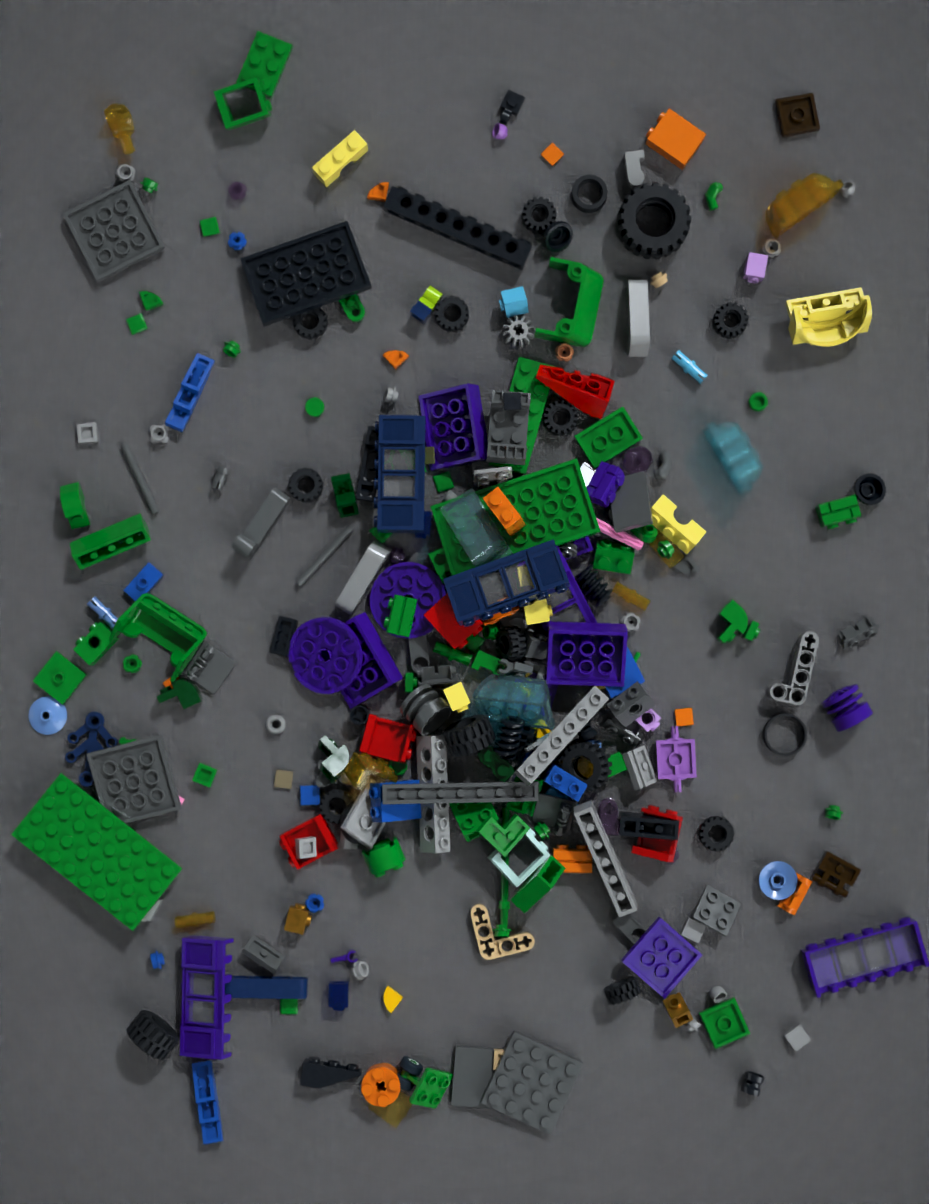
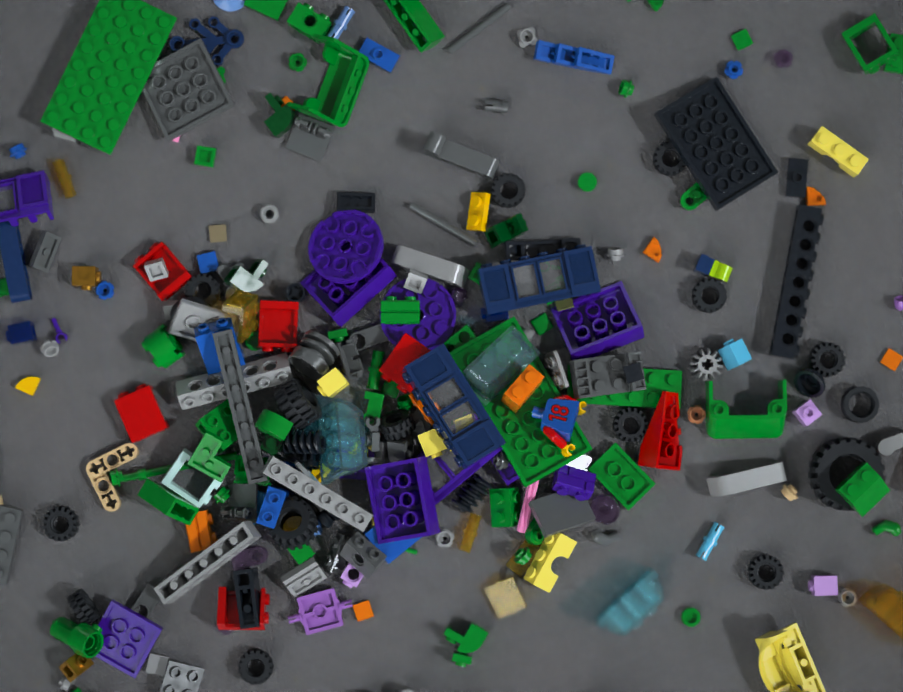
camera: 80 degrees right, 0 degrees up
(320, 519) = (478, 211): none -> yellow plate
(356, 204) = (796, 178): none -> black plate
(374, 594) = (415, 281): none -> light grey plate
(444, 893) = (140, 413): none -> red panel
(485, 763) = (273, 425): none -> green brick
(535, 983) = (72, 520): none -> black tyre
(542, 483) = (559, 420): none -> torso
(586, 245) = (806, 412): none -> lavender brick
(653, 998) = (81, 638): none -> green piece
(672, 207) = (862, 488): none -> green slope
(701, 575) = (505, 597): none -> clear yellow piece

